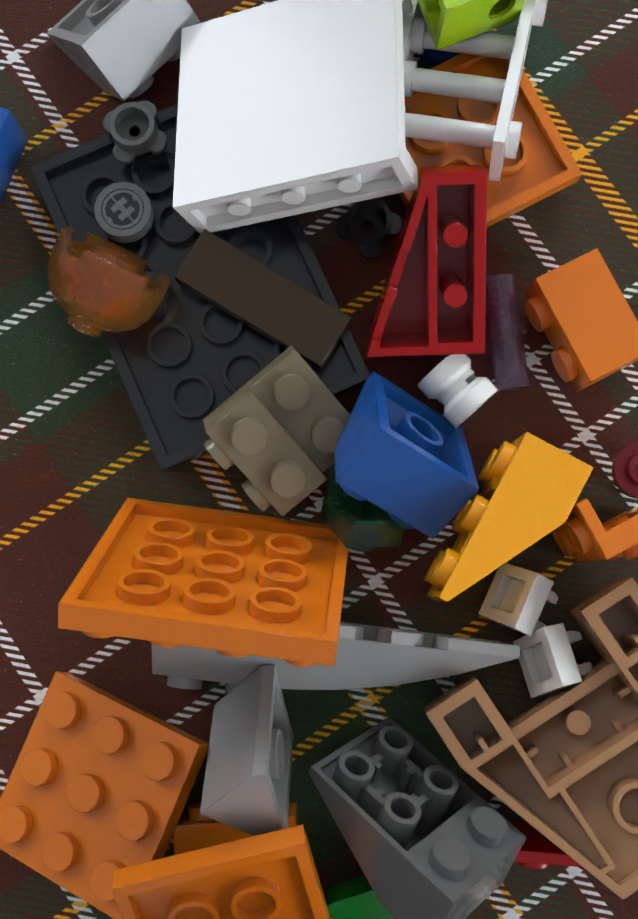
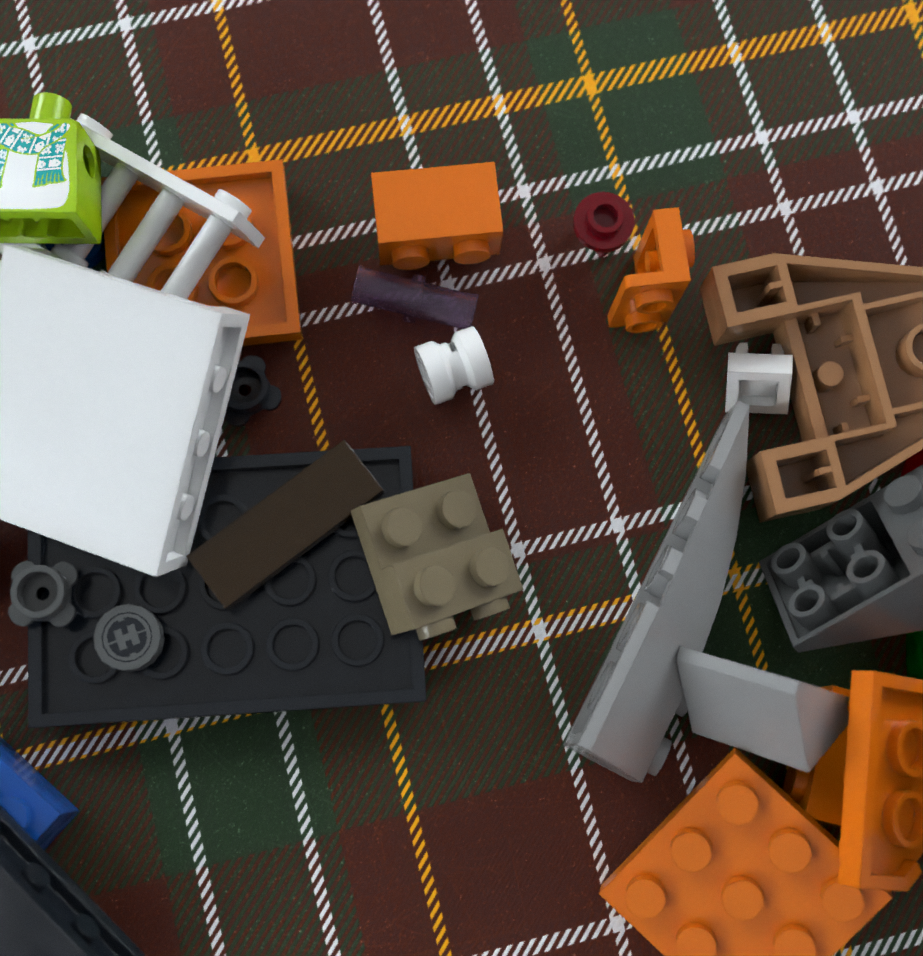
camera: 80 degrees left, 5 degrees down
(102, 284) = (207, 684): clear orange cylinder -> none
(212, 583) = (578, 670): orange plate -> none
(358, 523) = (543, 513): clear green bracket -> none
(404, 458) = (511, 441): blue slope -> none
(438, 269) = (331, 334): red wedge -> none
(517, 598) = (686, 389): white tile -> none
(524, 499) = (602, 352): light orange slope -> none

